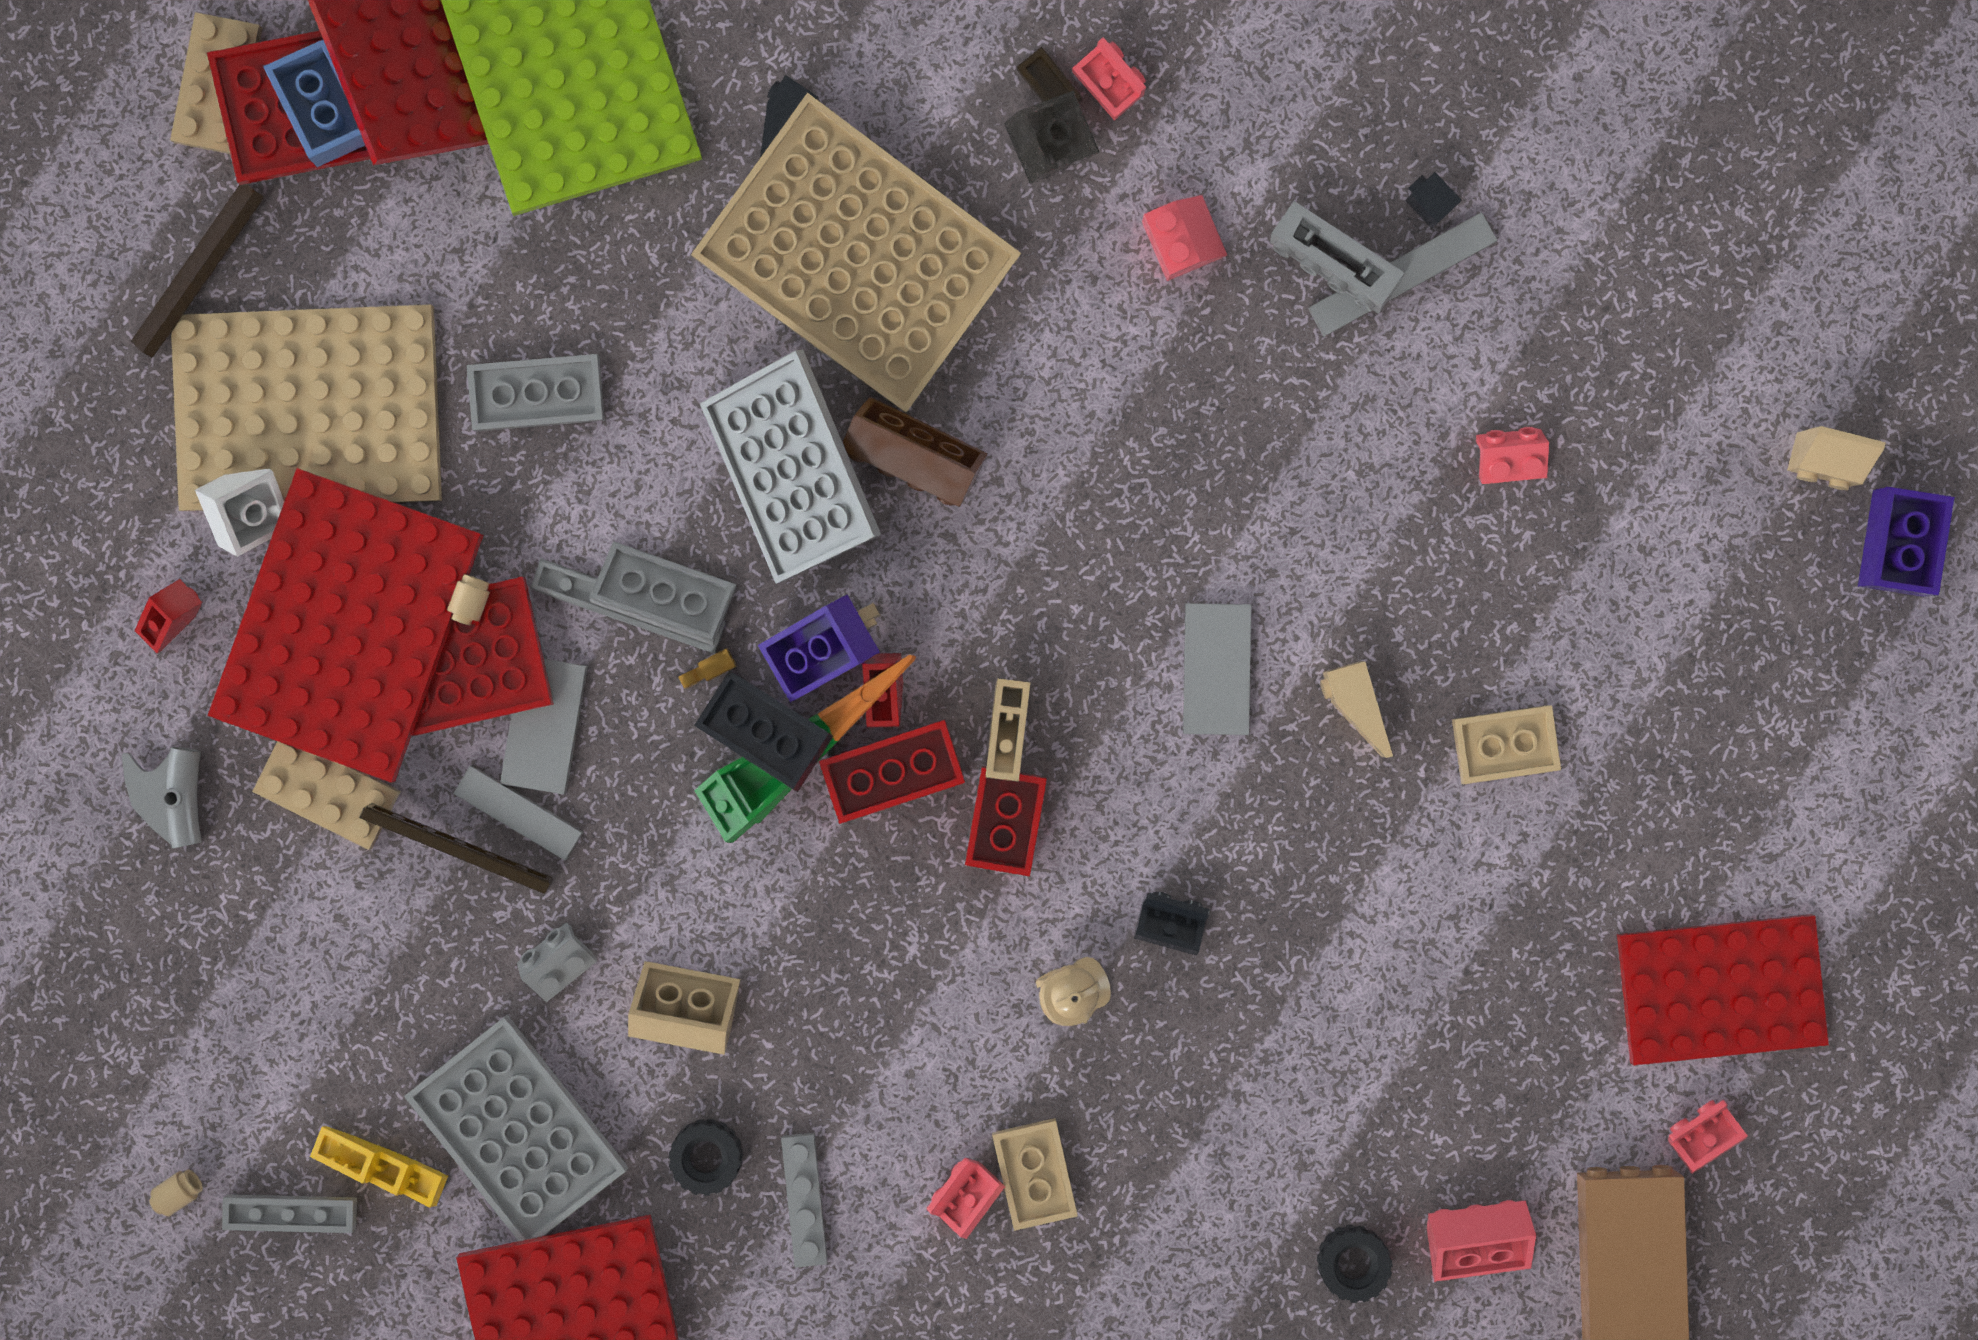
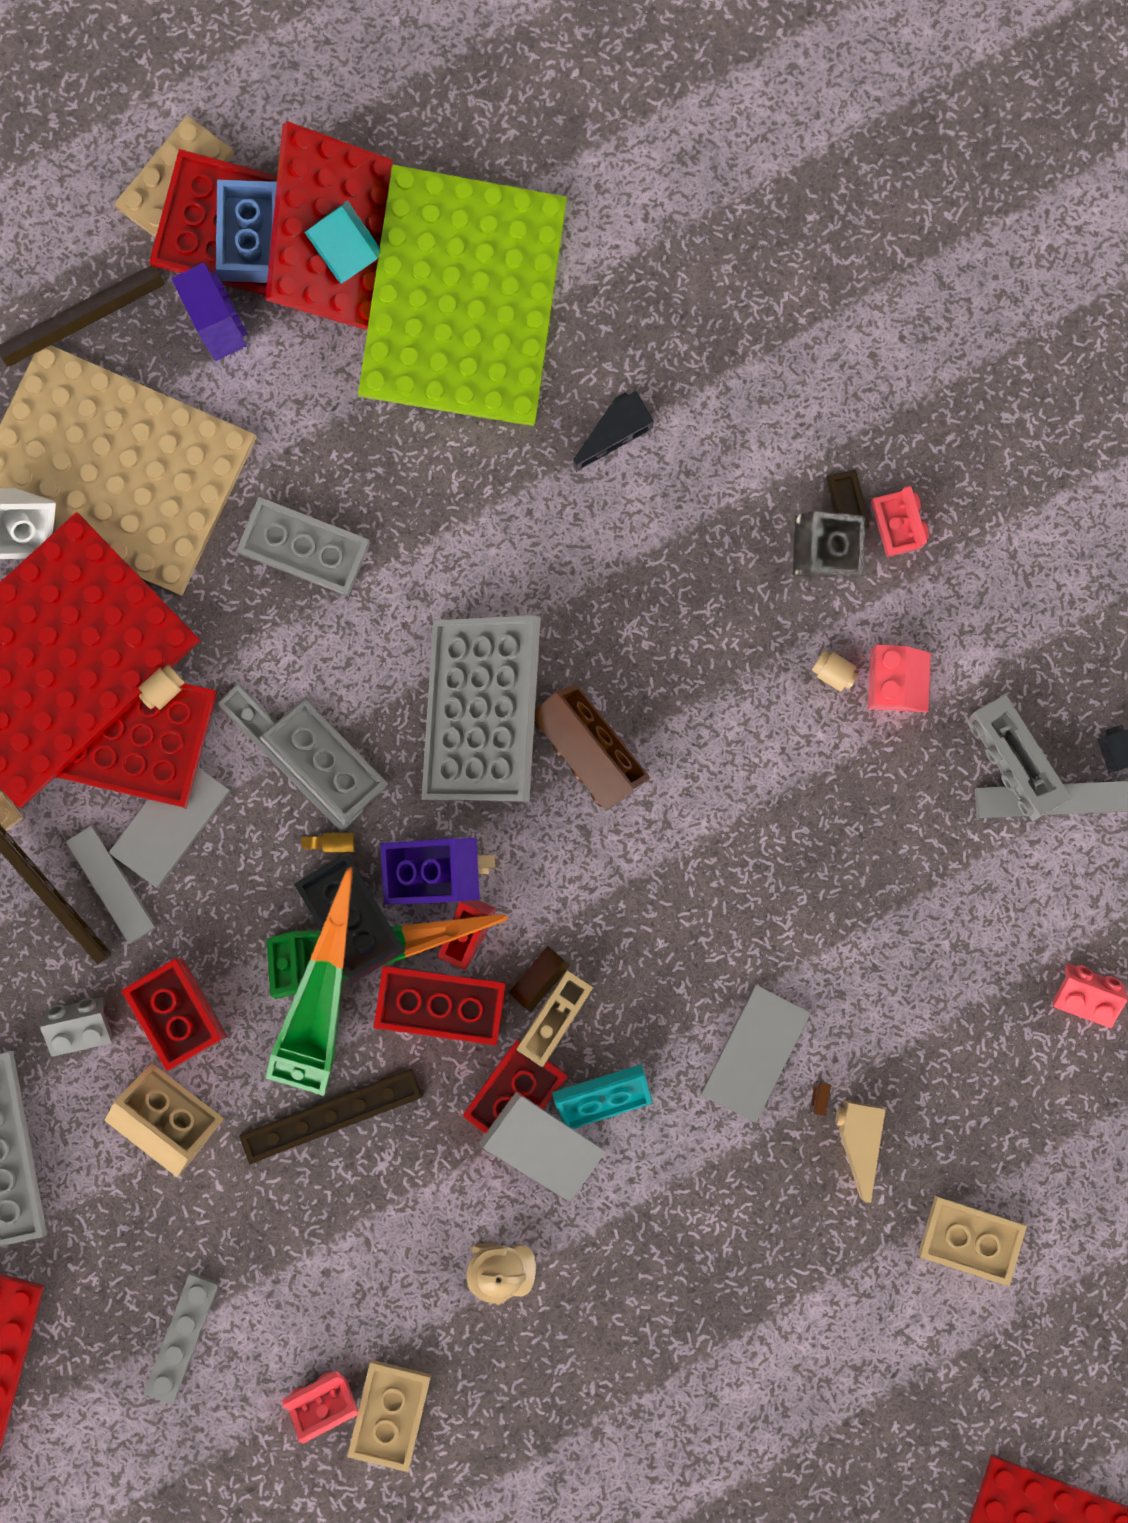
camera: 25 degrees right, 5 degrees down
(324, 202) = (211, 310): none -> dark purple brick
(421, 67) = (343, 242): none -> teal slope
(642, 904) = (174, 1013): none -> red brick
(688, 1175) = (93, 1265): black tyre -> none
(781, 862) = (308, 1036): none -> green plate
(841, 926) = (331, 1116): none -> dark brown tile
(855, 253) = (622, 562): tan plate -> none
(975, 700) = (539, 979): none -> dark brown tile
(1055, 856) = (542, 1147): none -> light grey tile
(1090, 782) = (603, 1097): none -> teal tile
(1117, 259) = (835, 670): none -> tan brick
(1171, 922) = (613, 1253): black bracket -> none
(1298, 681) = (820, 1098): none -> reddish brown tile

